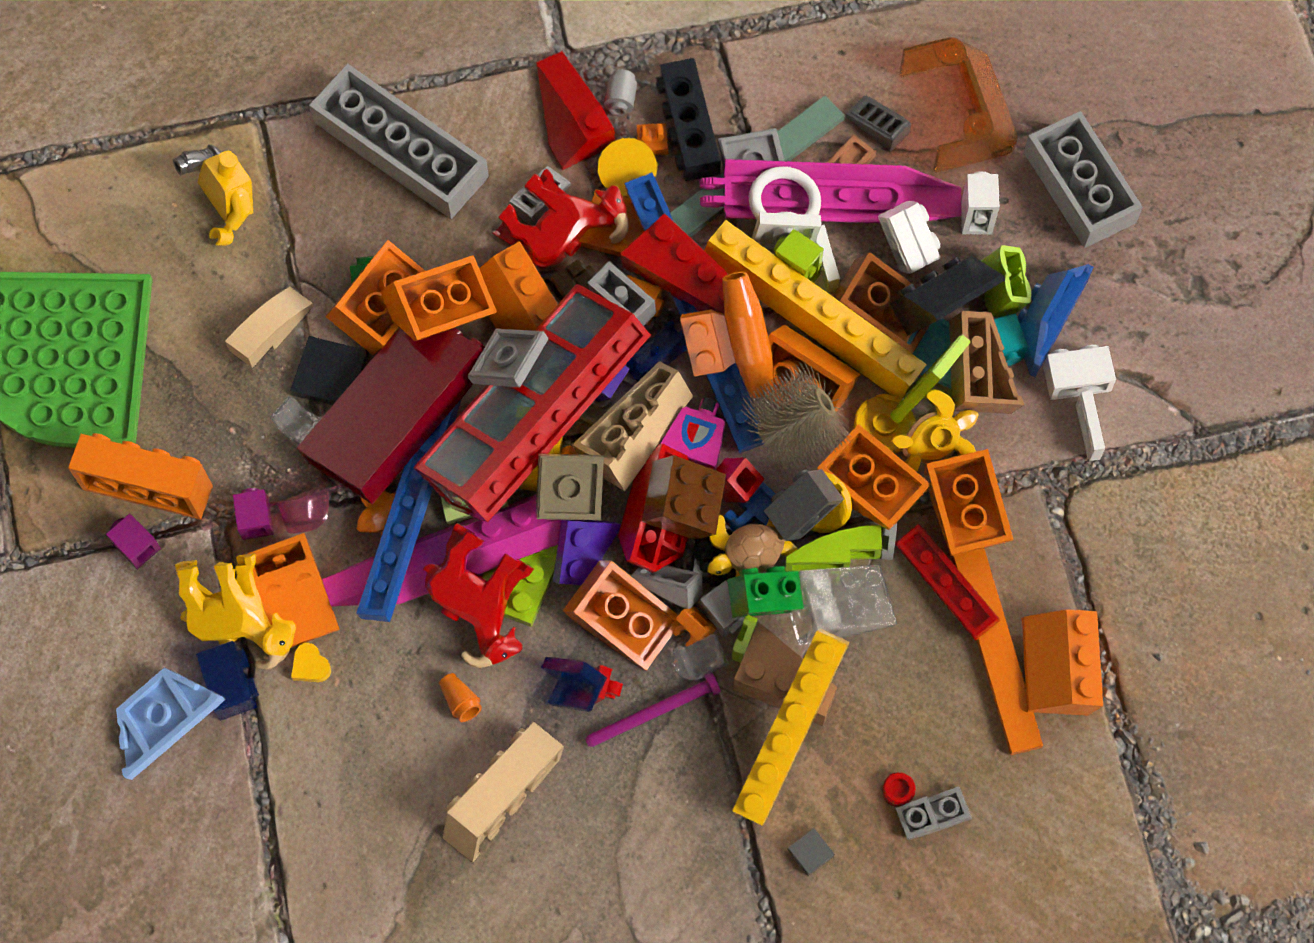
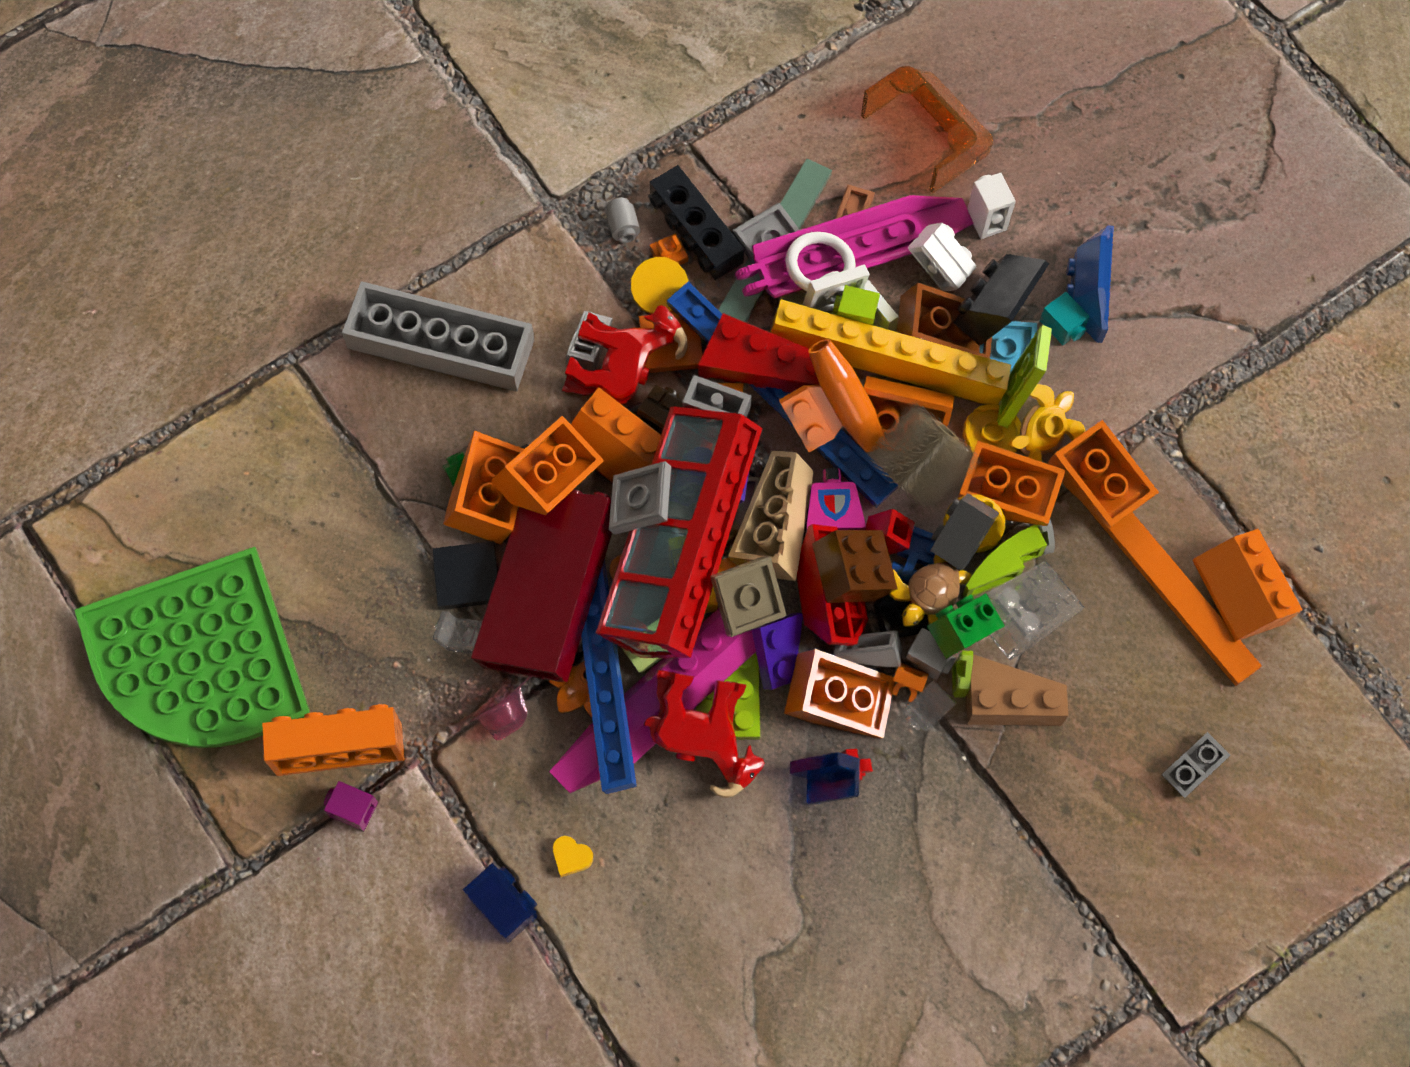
camera: 25 degrees left, 0 degrees up
(160, 716) = (453, 963): light blue wing -> none
(224, 185) = (290, 436): yellow torso -> none
(233, 610) = (481, 835): yellow animal -> none
(253, 513) = (455, 735): magenta brick -> none
(268, 326) = (390, 553): tan slope -> none
(294, 588) = (526, 795): orange slope -> none
(460, 698) = (726, 831): orange cone -> none
(500, 789) = (806, 902): tan wedge -> none
(572, 114) = (587, 255): red wedge -> none
(655, 710) = (946, 729): magenta bar -> none
(662, 347) = (769, 439): clear blue hinge -> none
(790, 726) = (1046, 737): yellow brick -> none
(811, 852) = (1105, 844): dark grey tile -> none
(880, 134) = (870, 176): dark grey slope -> none
(898, 789) = (1155, 756): red tile -> none
(947, 582) = (1113, 553): red tile -> none
(981, 373) = (1069, 359): medium nougat wedge -> none
(1015, 291) = (1057, 274): lime brick -> none
(1079, 371) = (1141, 323): white brick -> none
(1082, 179) = (1067, 152): light grey brick -> none
(1090, 426) = (1172, 367): white tile -> none

